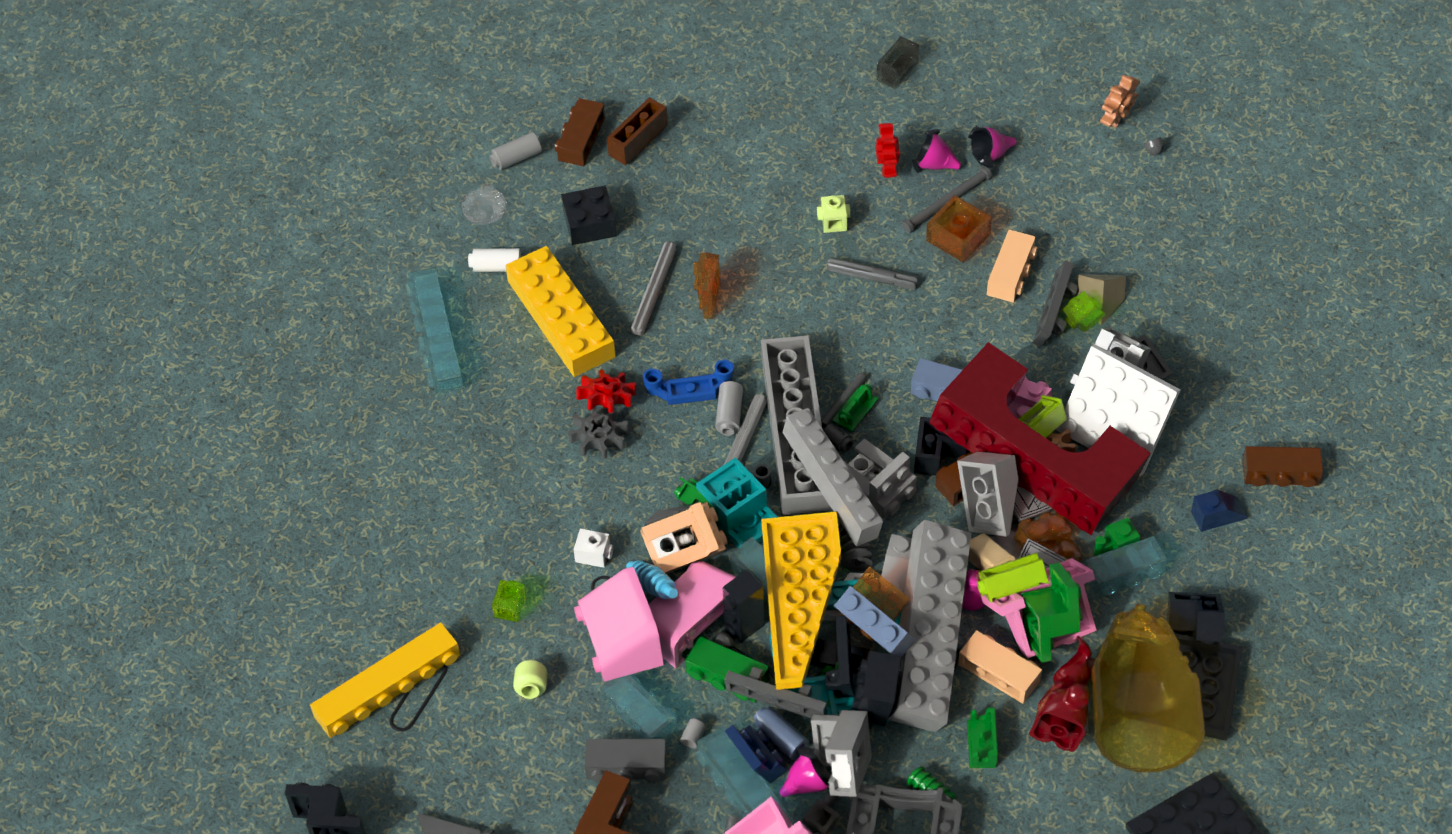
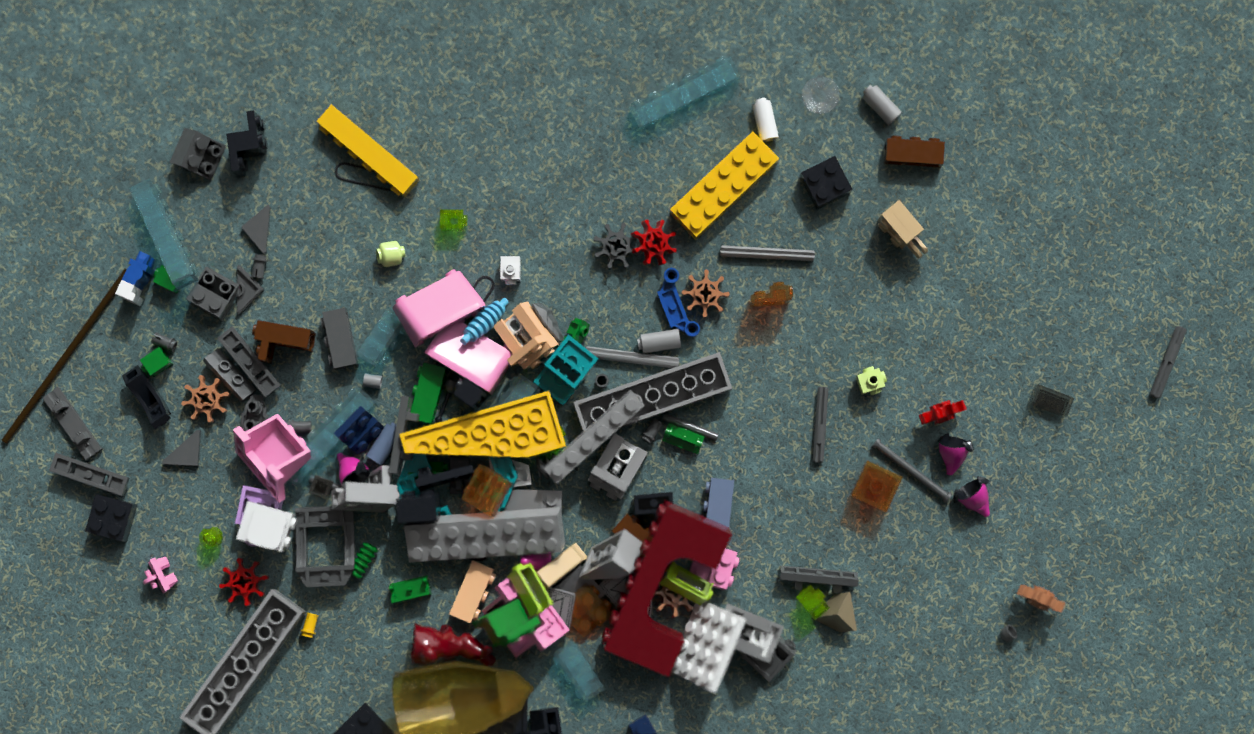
camera: 80 degrees right, 30 degrees up
(637, 131) = (922, 199): reddish brown brick -> none
(664, 150) = (902, 228): none -> tan brick
(684, 353) = (715, 294): none -> nougat gear
(874, 622) = (461, 495): sand blue brick -> none
(1012, 266) = (850, 536): light nougat brick -> none
(1116, 536) = (600, 662): green brick -> none

